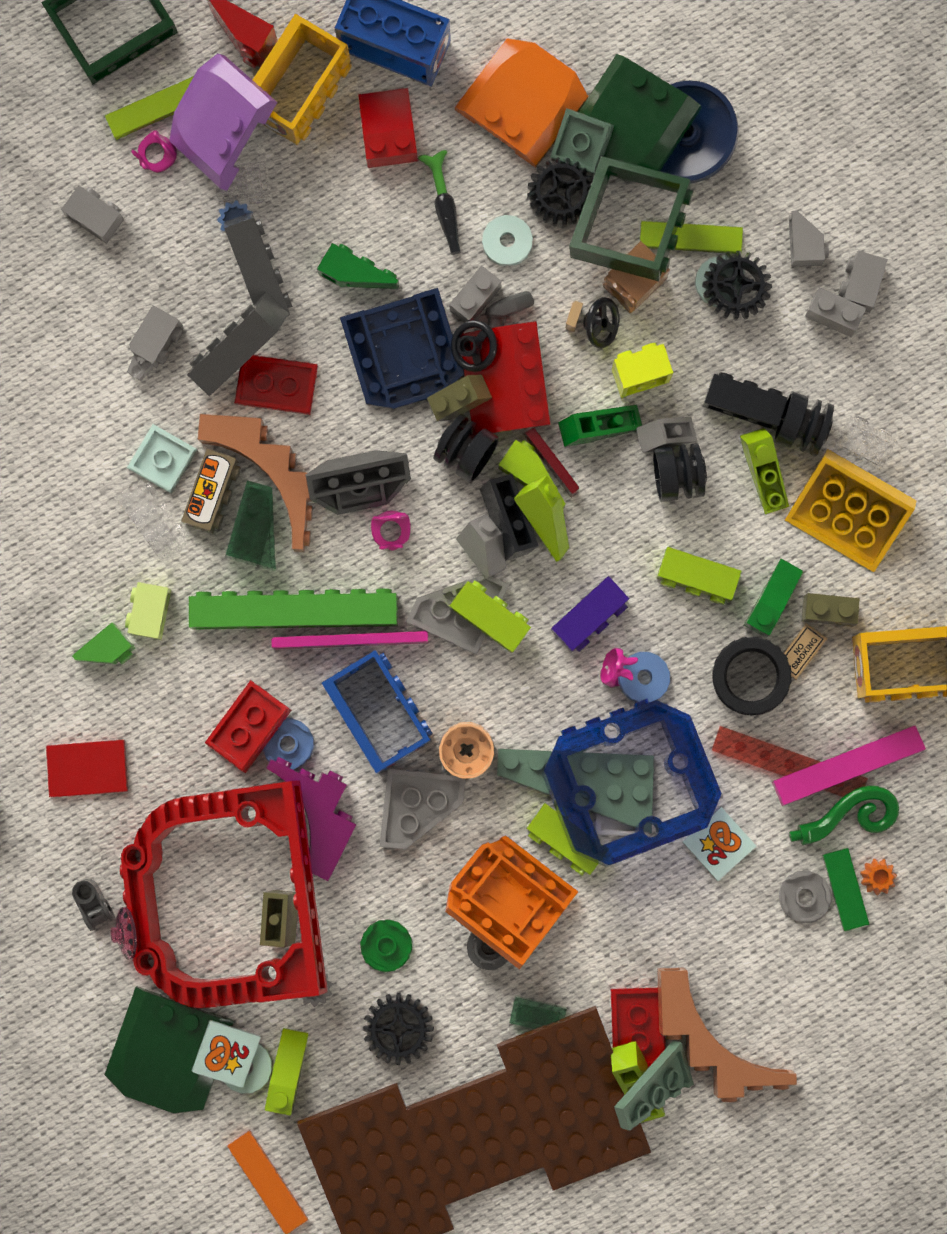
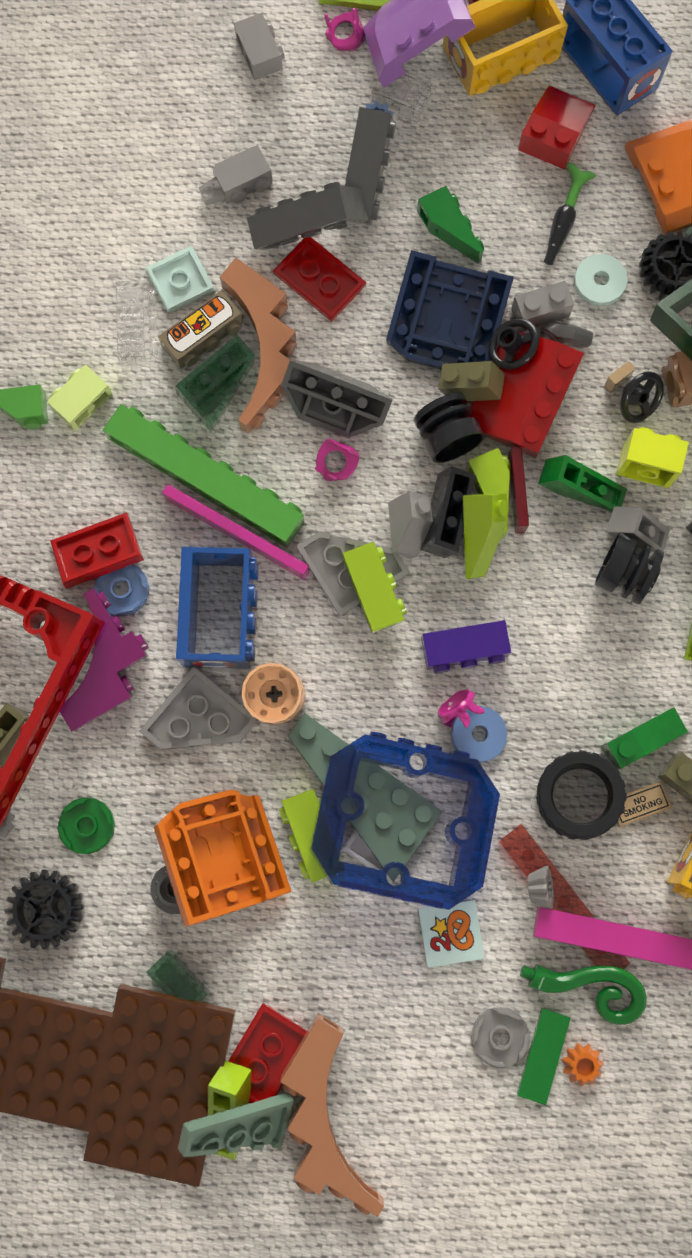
camera: 30 degrees right, 5 degrees down
(698, 575) = (588, 673): lime brick -> none
(765, 765) = (541, 887): none -> light grey piece

